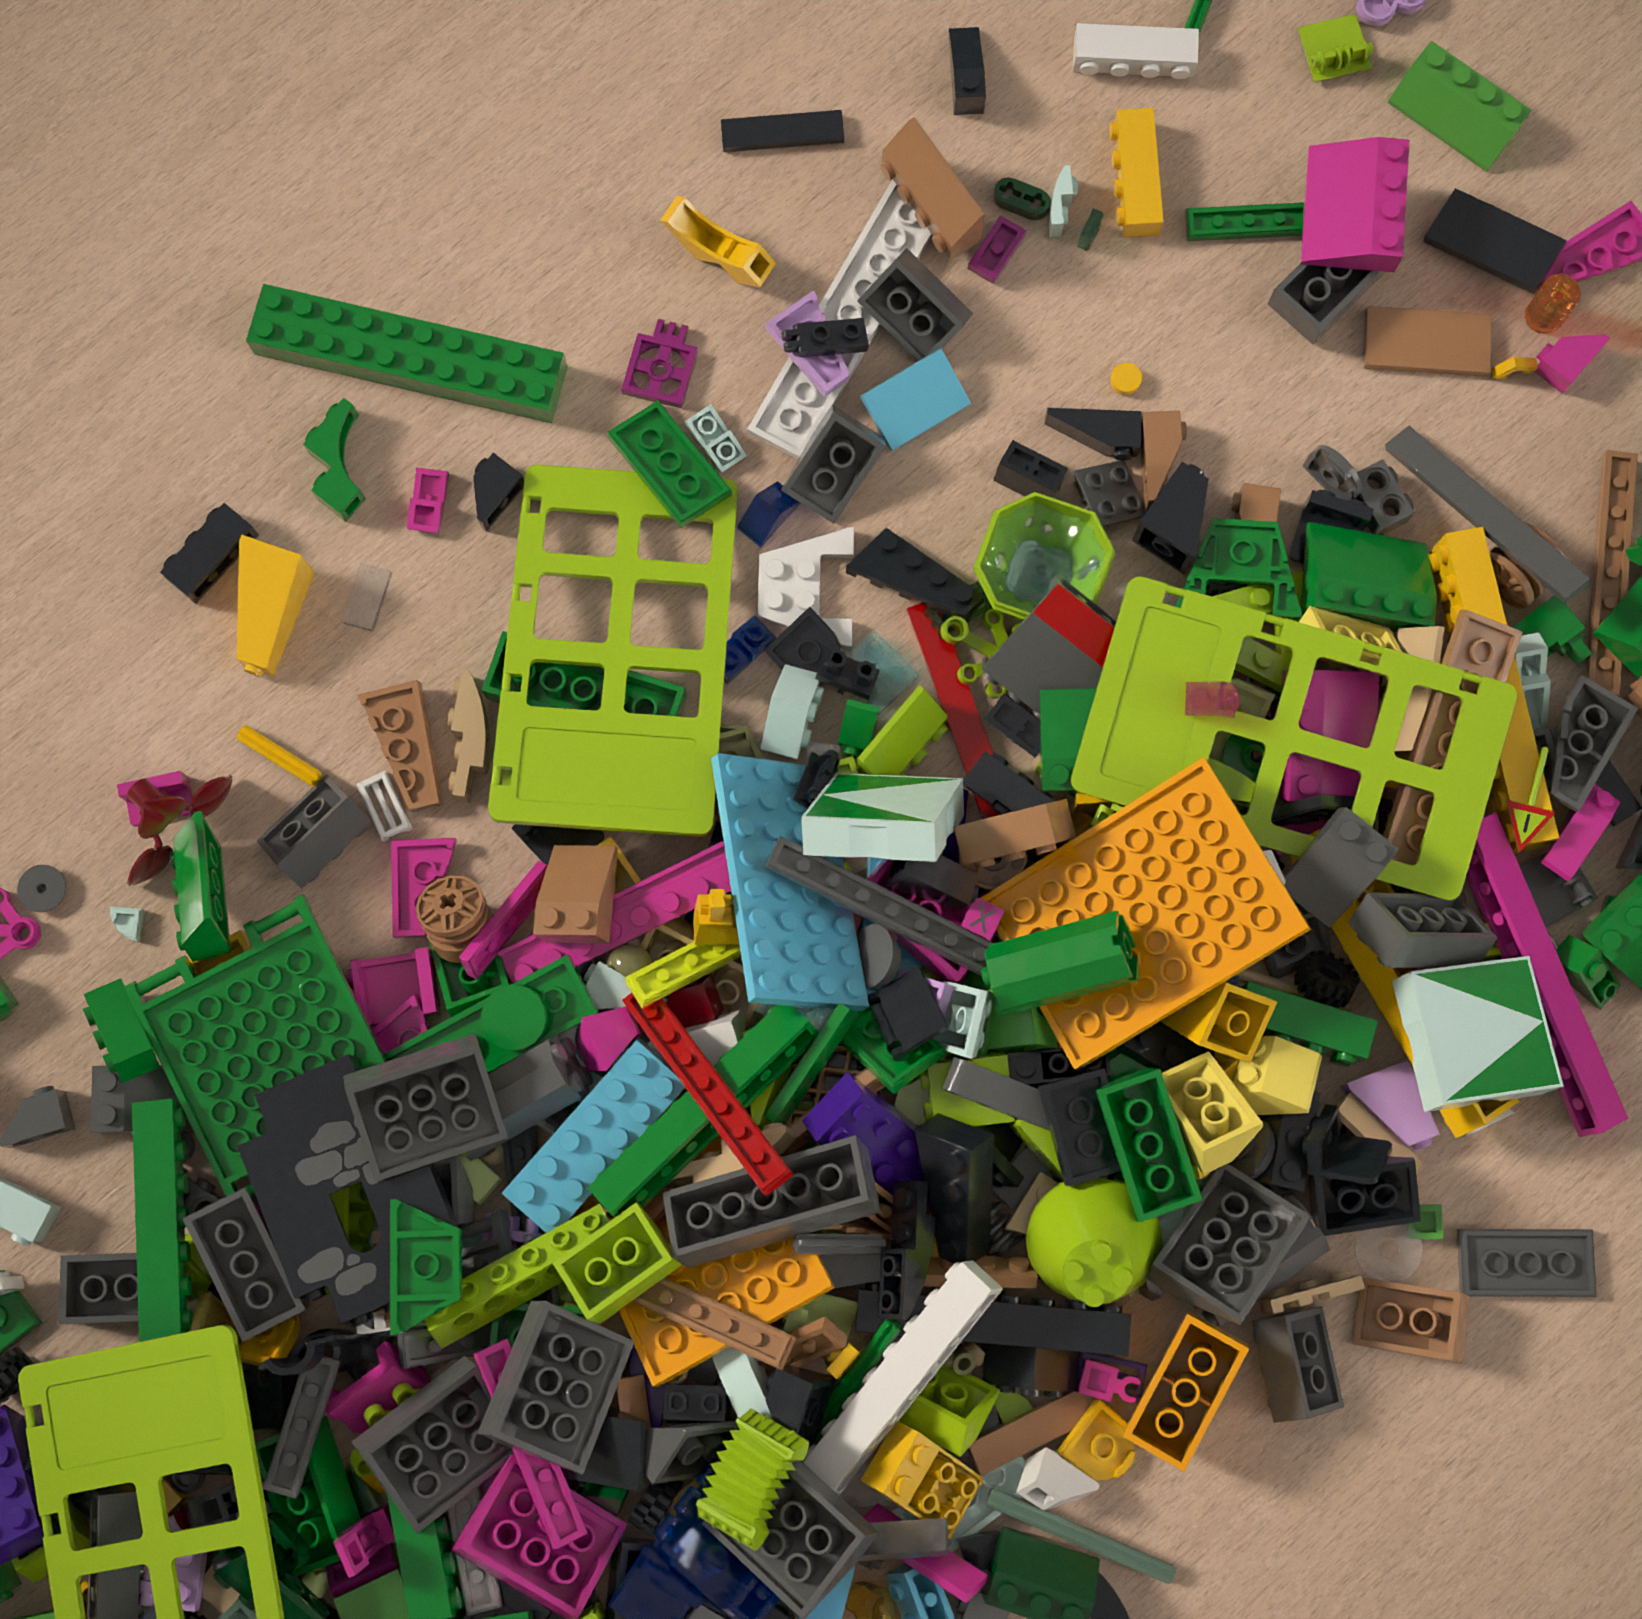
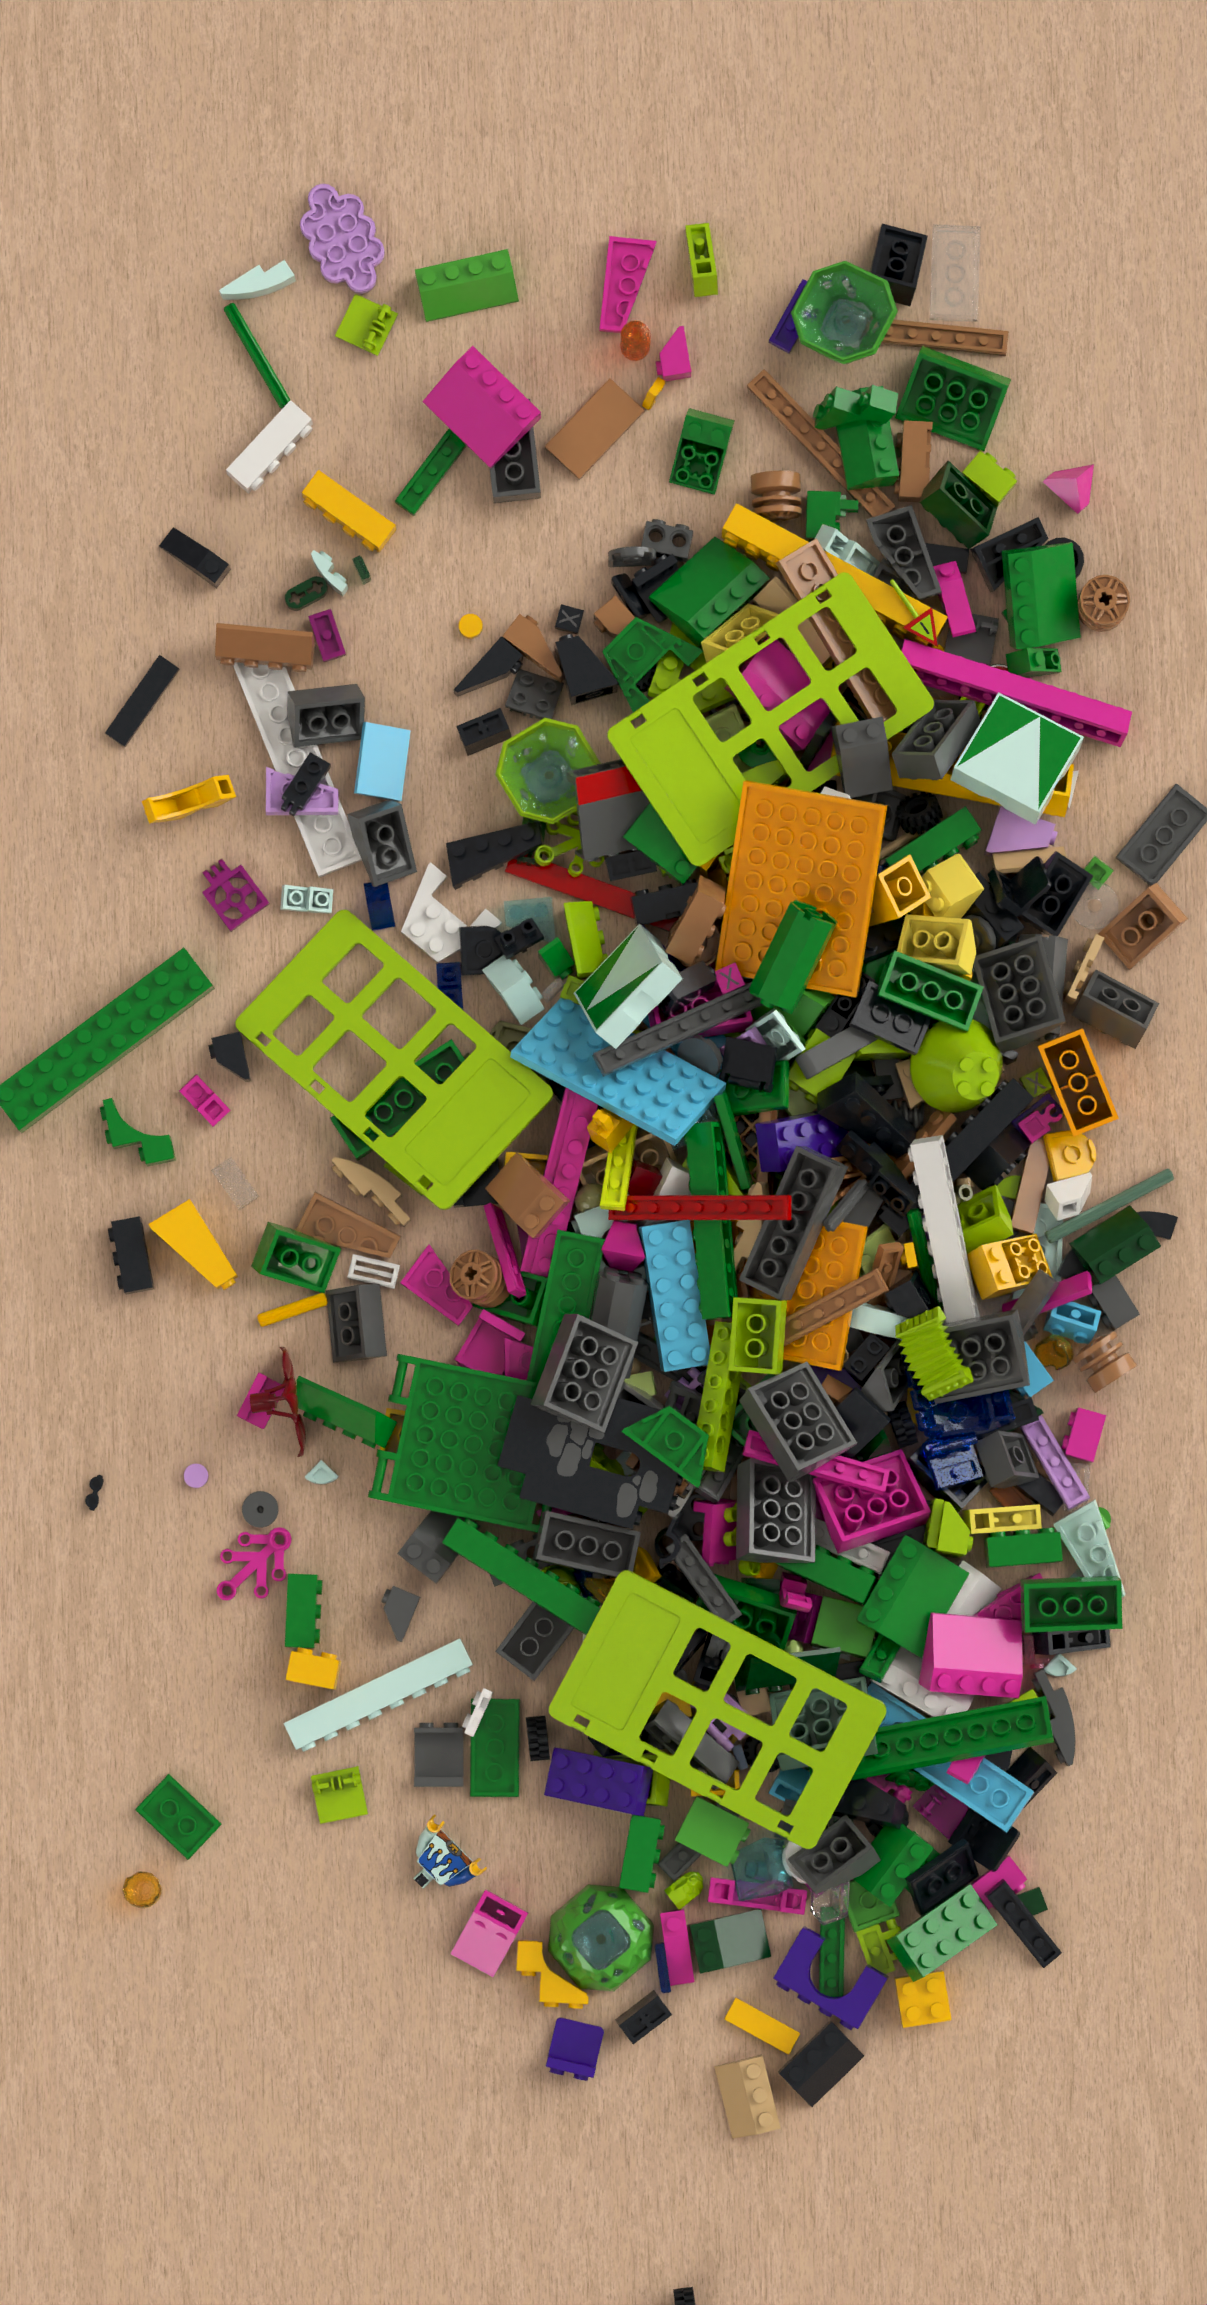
camera: 55 degrees left, 5 degrees up
(29, 796) = (196, 1475): none -> lavender tile
(119, 1031) = (389, 1521): green brick -> none
(332, 715) = (295, 1258): none -> green slope
(514, 1017) = (569, 1287): green tile -> none
(669, 464) = (301, 939): green tile -> none
(816, 776) = (569, 1007): black hinge -> none
(1147, 1342) = (1036, 1082): none -> lime tile
(1211, 699) = (713, 748): clear pink bracket -> none
(1217, 467) = (569, 619): none -> black tile
(1292, 505) = (629, 596): none -> black slope
(1486, 511) = (729, 492): dark grey tile -> none
(1494, 241) = (567, 338): black tile -> none
(1506, 455) = (701, 451): none -> green slope

